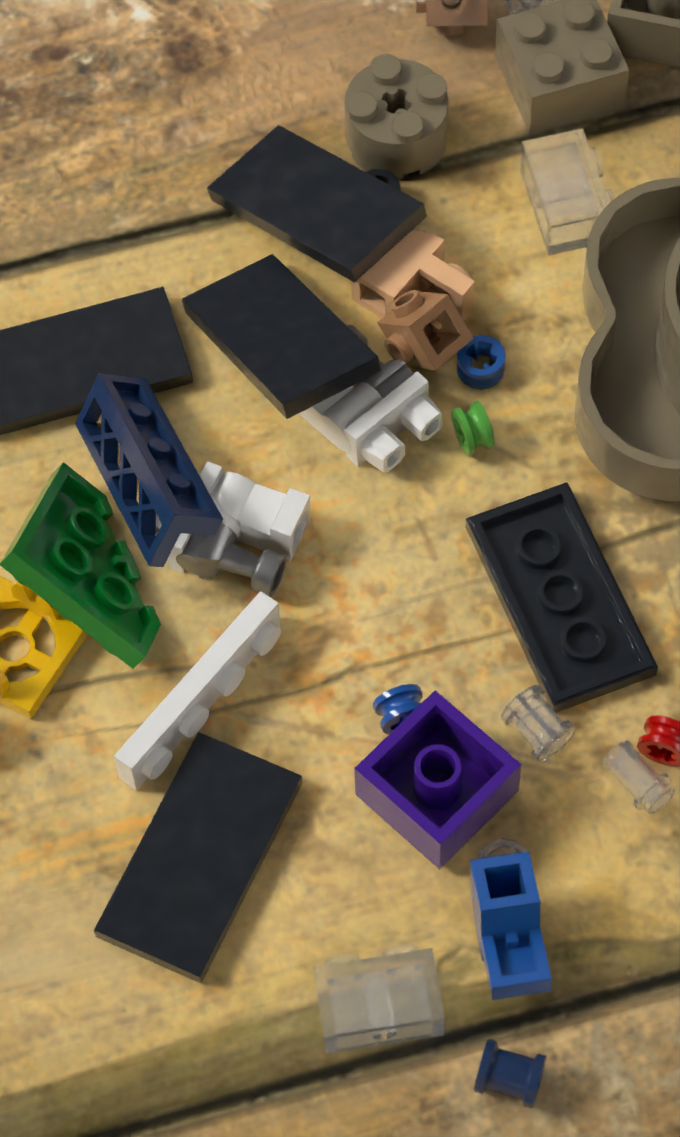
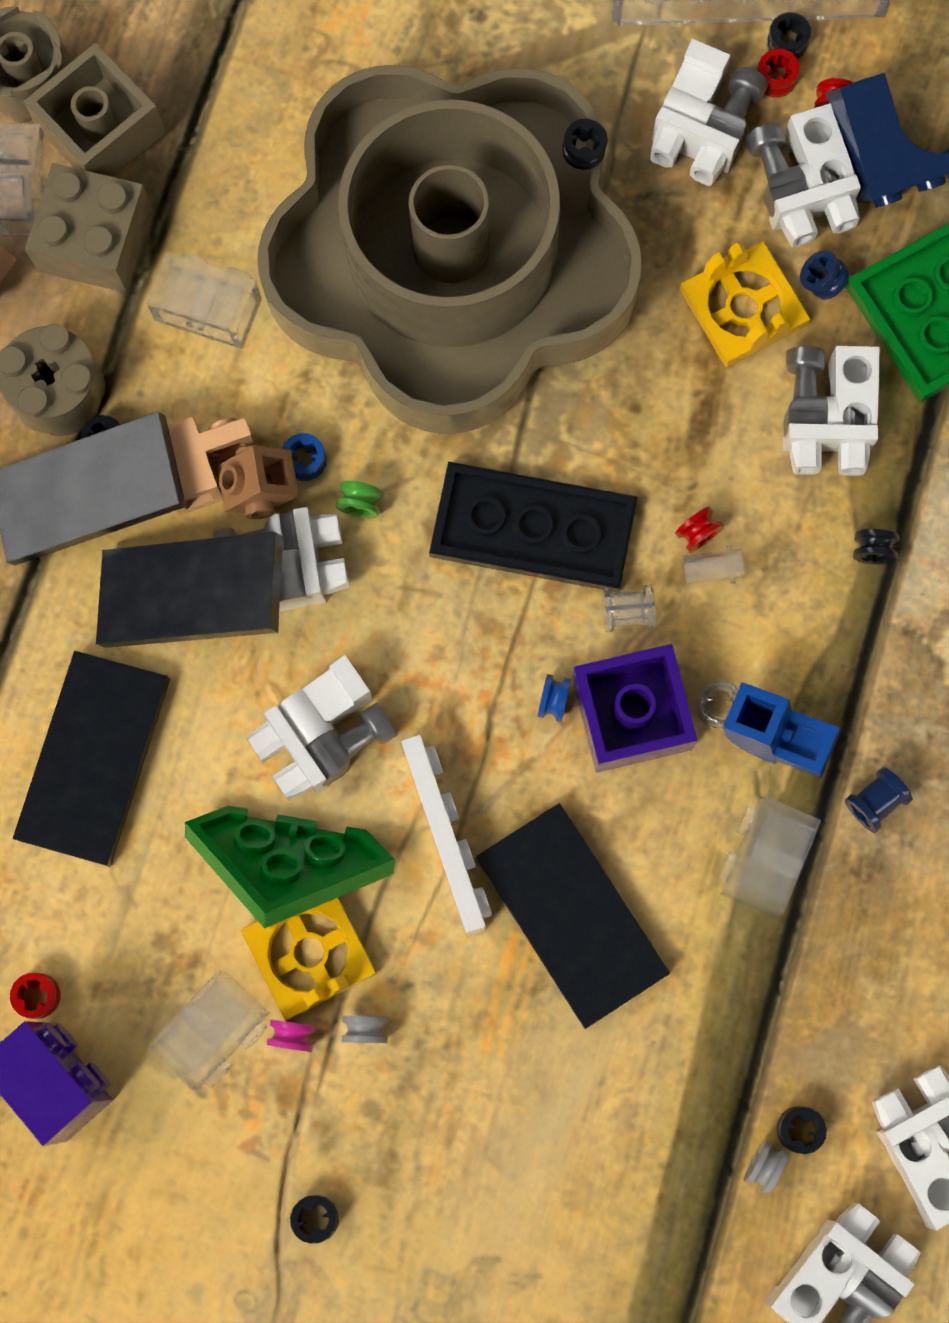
camera: 55 degrees left, 15 degrees up
(154, 456) = (230, 753): dark blue fence -> none

